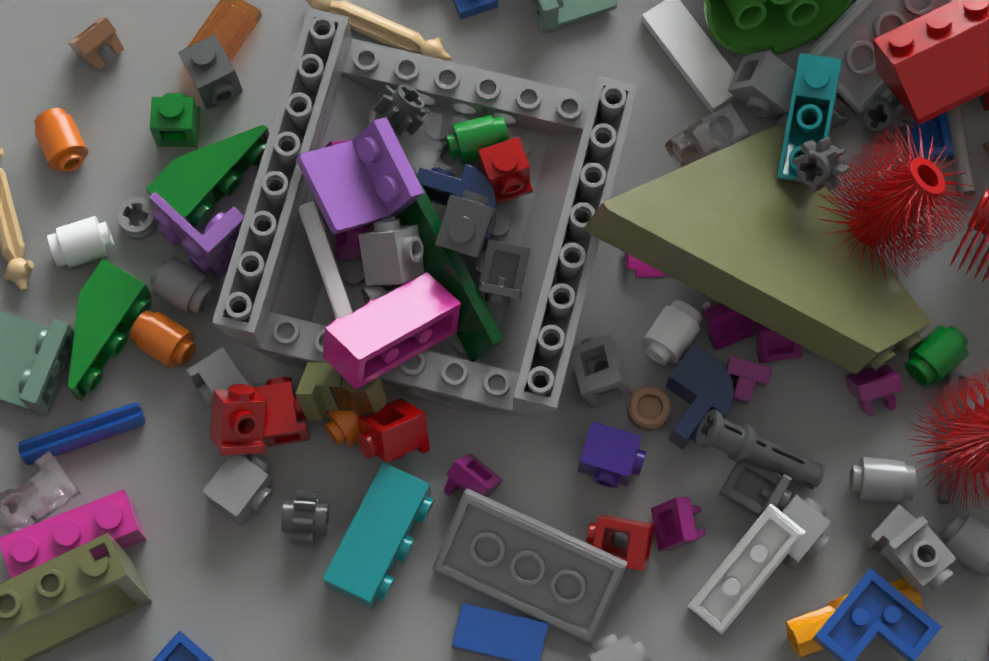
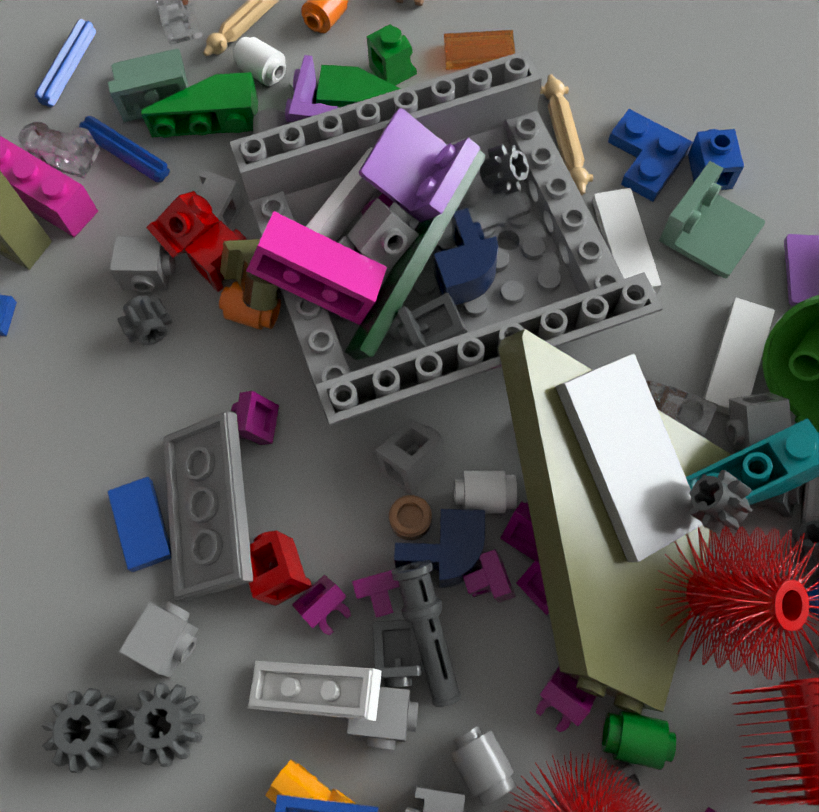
camera: 60 degrees right, 5 degrees down
(163, 339) = (219, 155): orange brick -> none
(211, 72) = (442, 52): dark grey bracket -> none
(379, 536) = (162, 380): teal brick -> none
(393, 431) = (247, 332): red brick -> none
(465, 223) = (440, 258): dark grey bracket -> none
(474, 135) = (527, 239): green brick -> none
(506, 169) = (517, 271): red brick -> none
(521, 57) = (625, 234): none -> white tile
(611, 455) = (343, 510): dark purple brick -> none
(696, 471) = (377, 588): none -> magenta tile
(740, 200) = (629, 456): none -> tile

